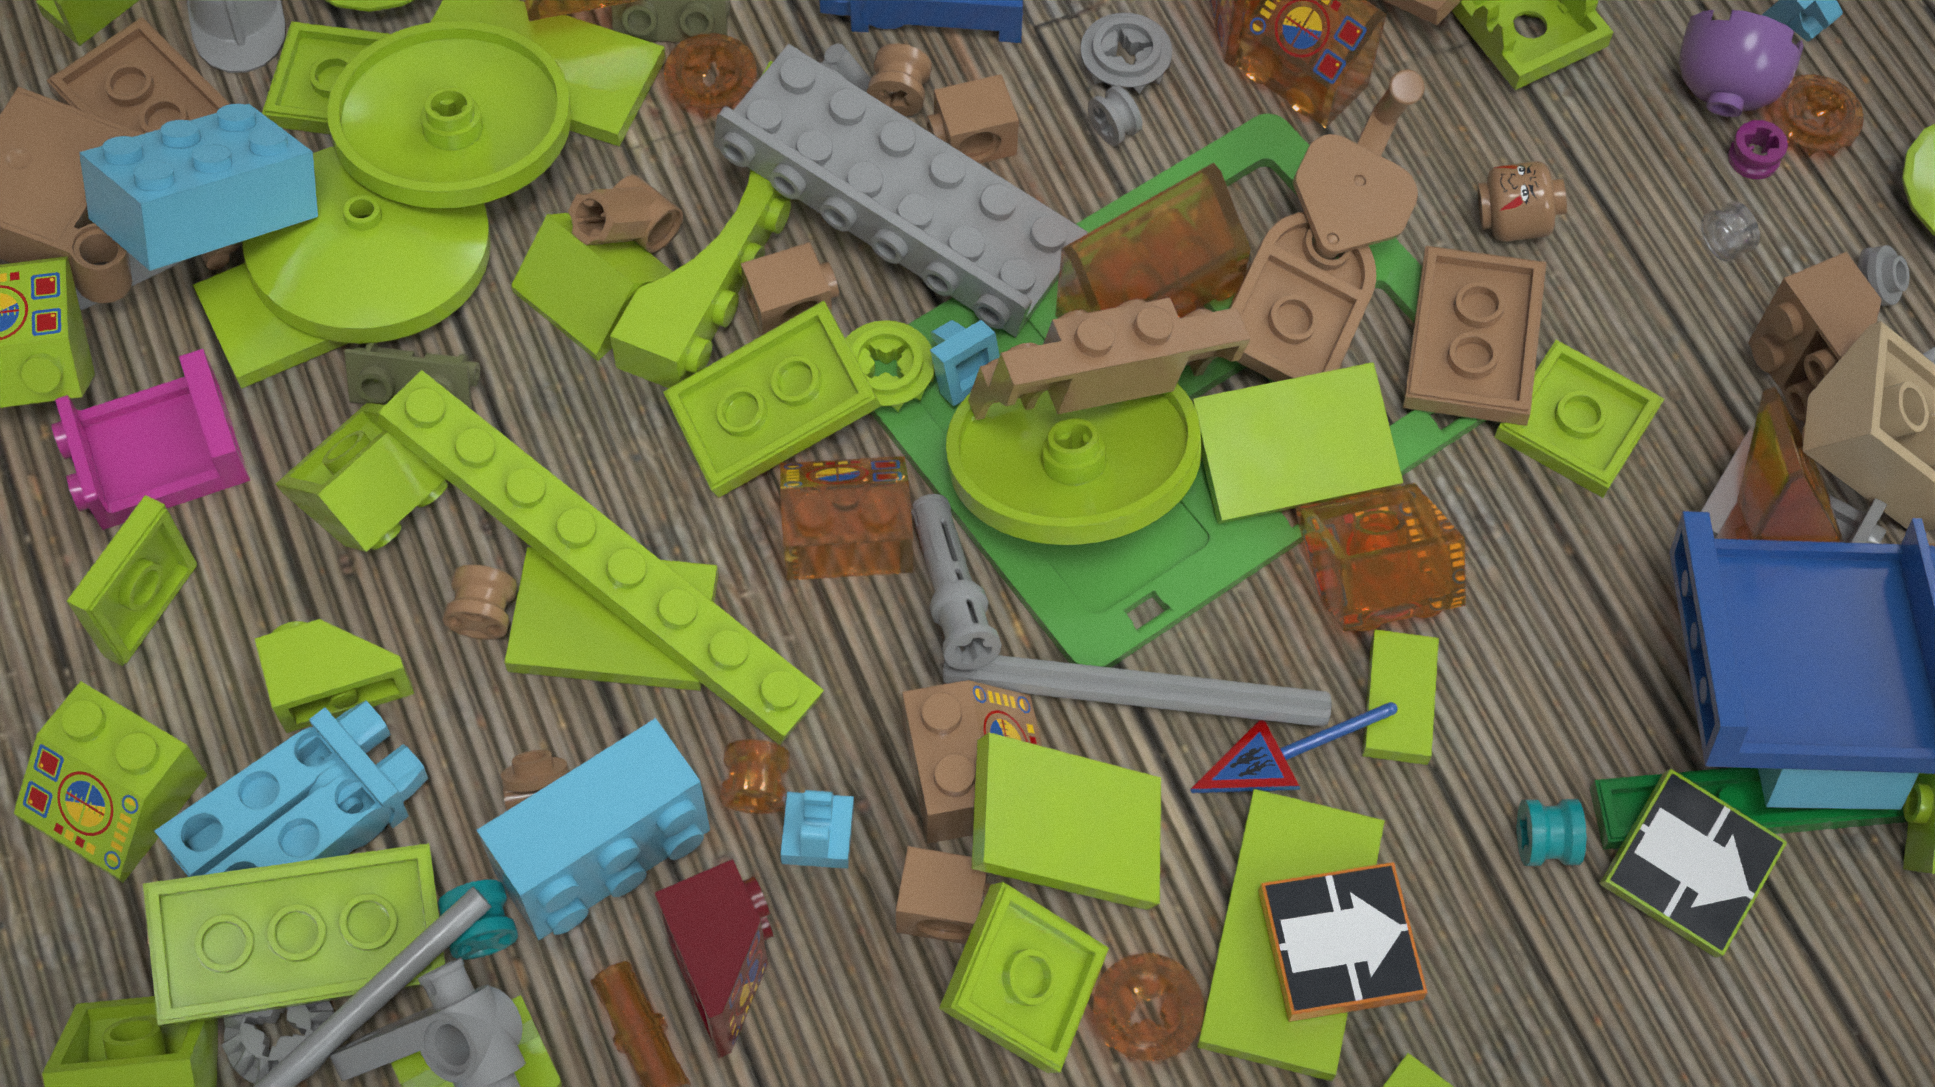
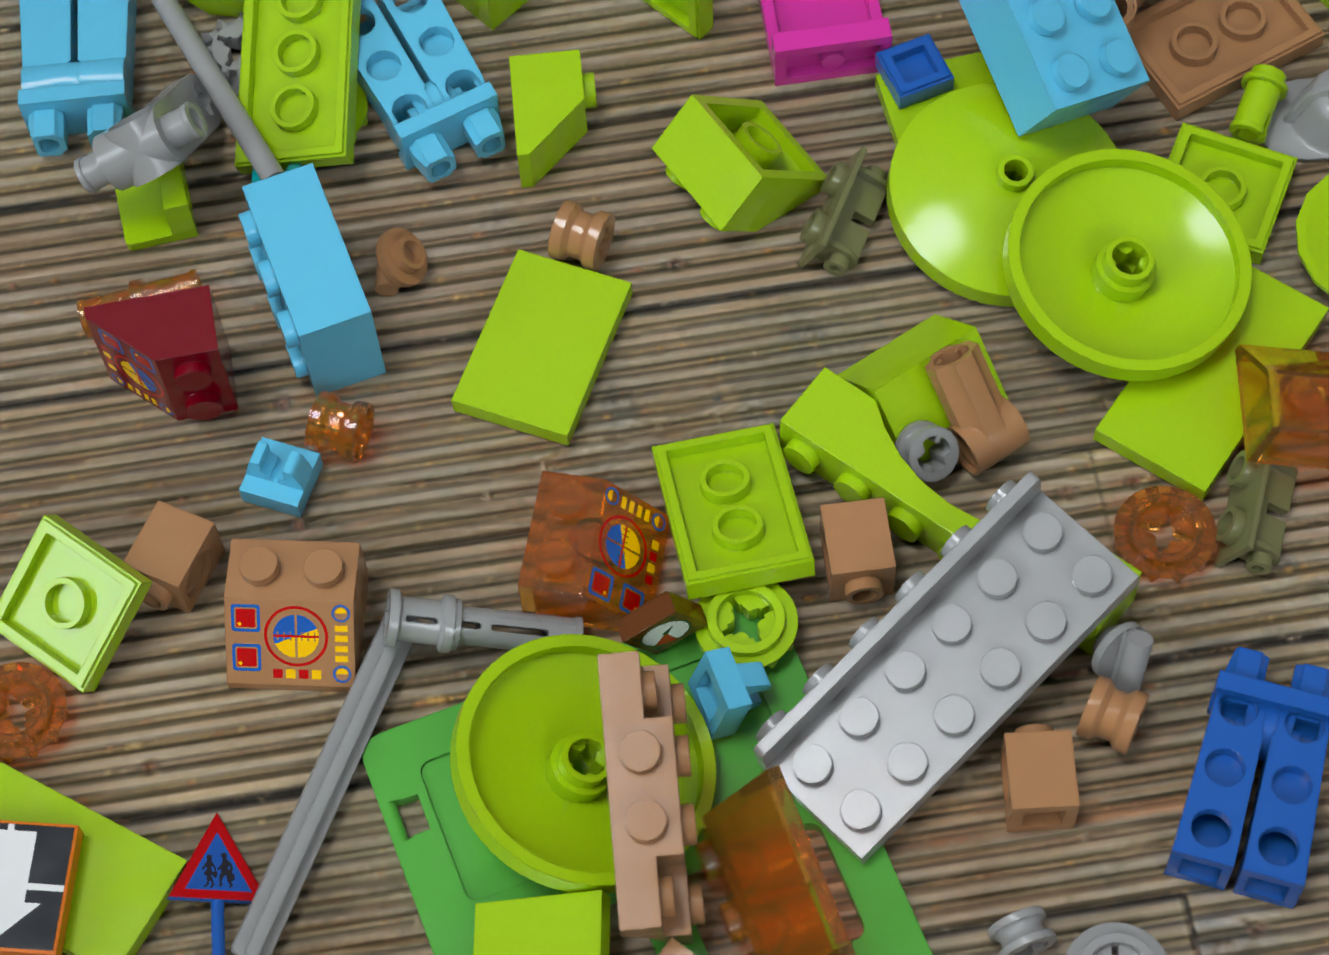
camera: 110 degrees right, 0 degrees up
(232, 56) = (1262, 91): none -> lime pin
(232, 337) = (914, 71): none -> blue tile
(600, 557) = (581, 321): lime plate -> none
(668, 252) = (943, 453): none -> light grey bush
(913, 418) = (661, 622): none -> reddish brown tile
(1066, 822) = (194, 667): lime tile -> none

